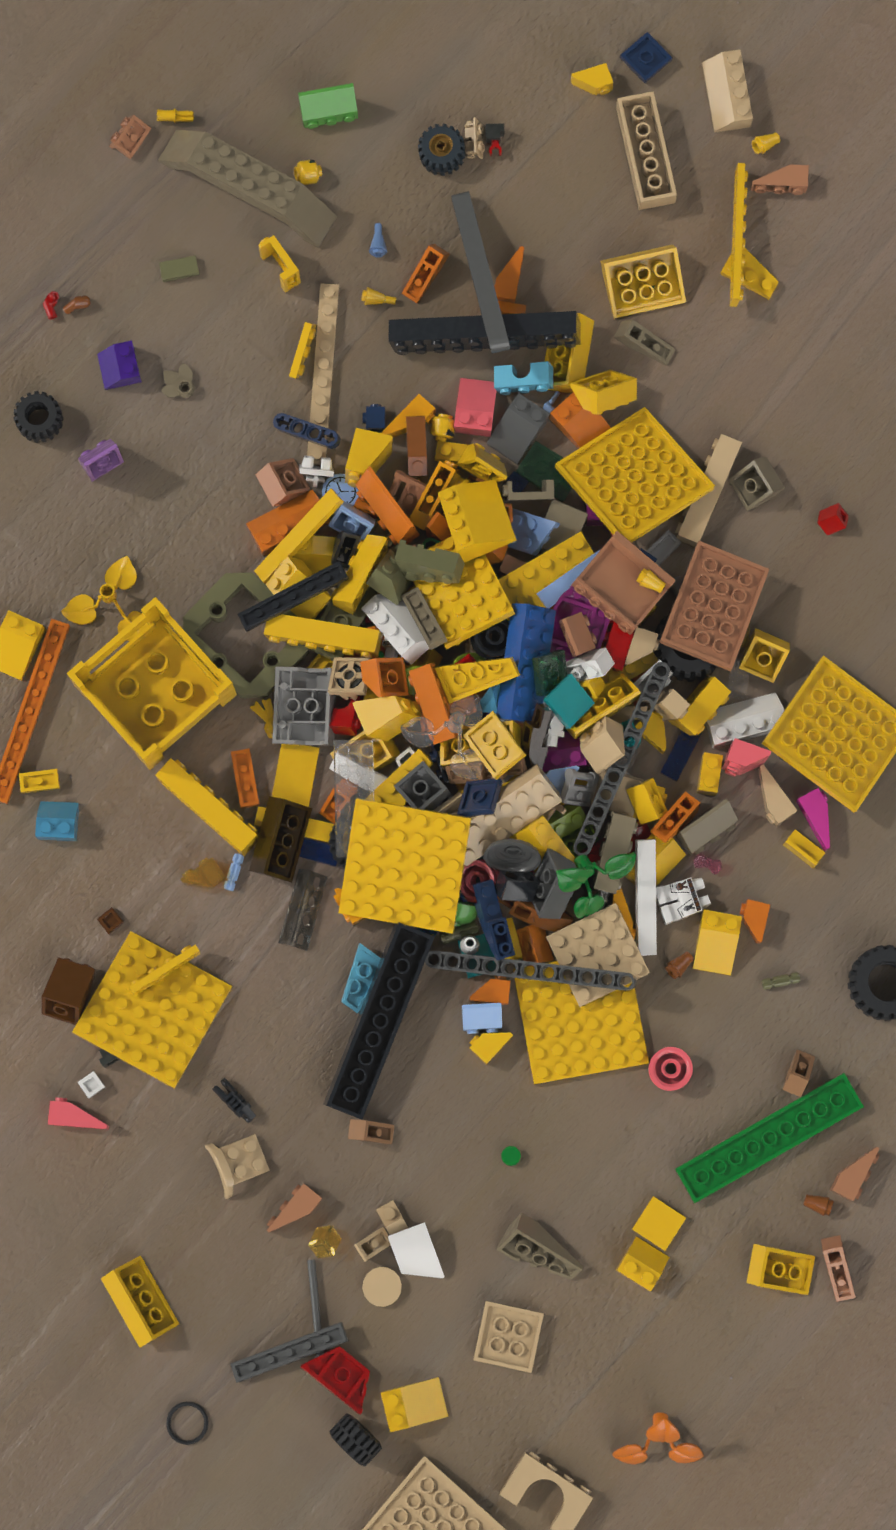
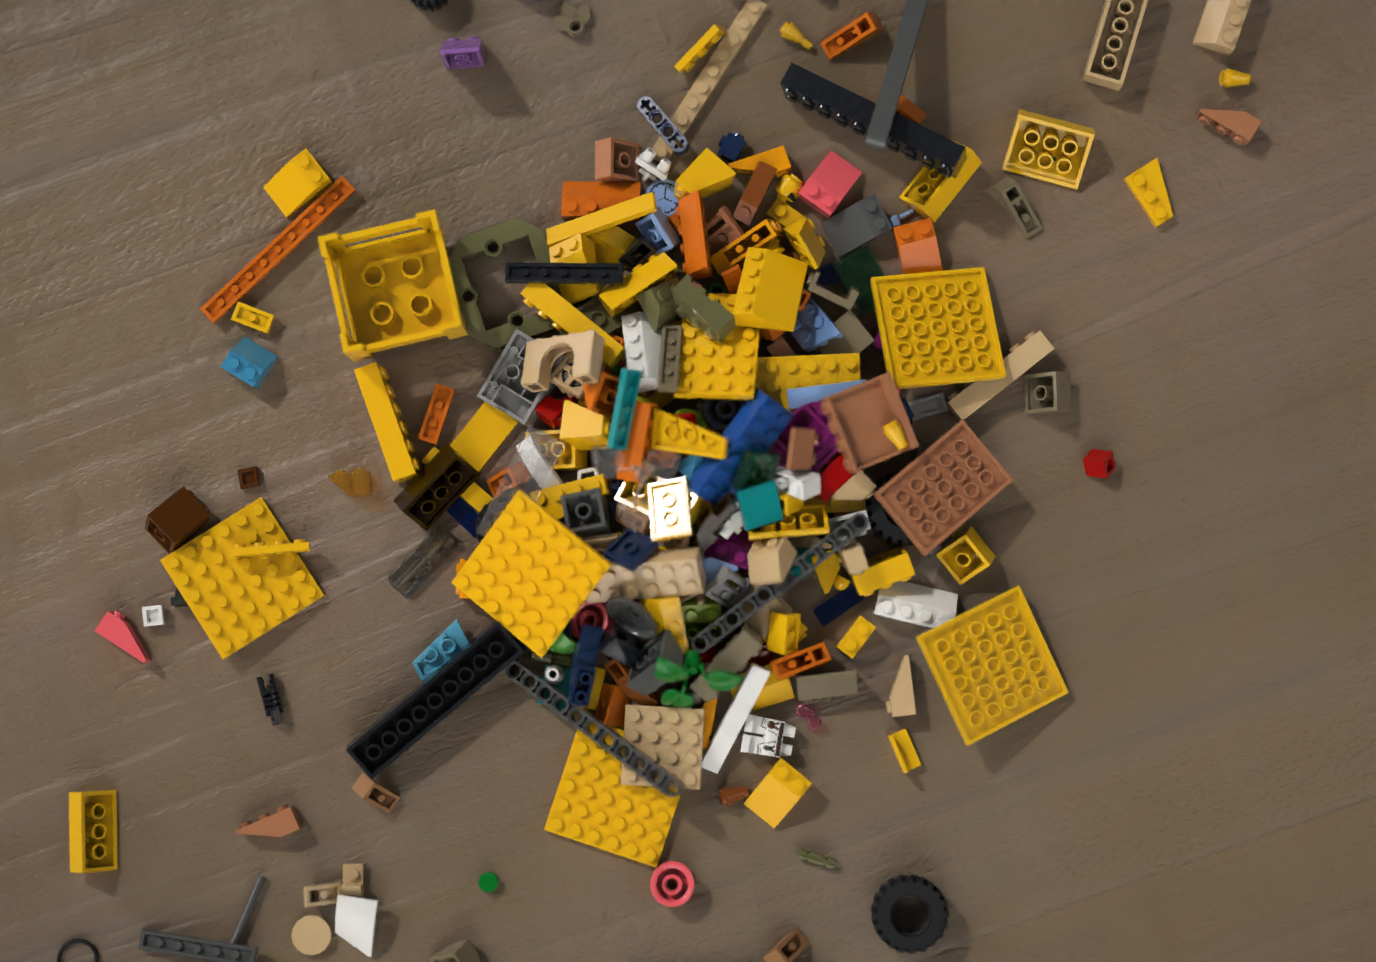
camera: 35 degrees right, 5 degrees up
(119, 575) = (375, 180): yellow plant -> none
(233, 872) = (380, 493): light blue axle -> none
(238, 1162) = (244, 755): tan piece -> none
(266, 715) = (486, 365): yellow piece -> none
(312, 672) = (543, 353): none -> tan arch
(324, 1241) = (282, 868): clear yellow panel -> none
(409, 680) = (624, 409): none -> teal plate
(482, 1017) = (528, 745): light blue slope -> none
(488, 1045) = (522, 773): yellow slope -> none
(493, 991) = (552, 728): orange slope -> none
(508, 280) = (923, 83): orange slope -> none
(539, 378) = (901, 189): medium azure arch -> none
(605, 391) = (954, 233): yellow slope -> none
(671, 735) = (841, 583): none -> yellow hinge
(738, 241) = (1156, 159): yellow plate -> none
(744, 757) = (892, 639): coral slope -> none
(754, 918) = (824, 789): orange slope -> none
(815, 811) = (933, 723): dark pink slope -> none

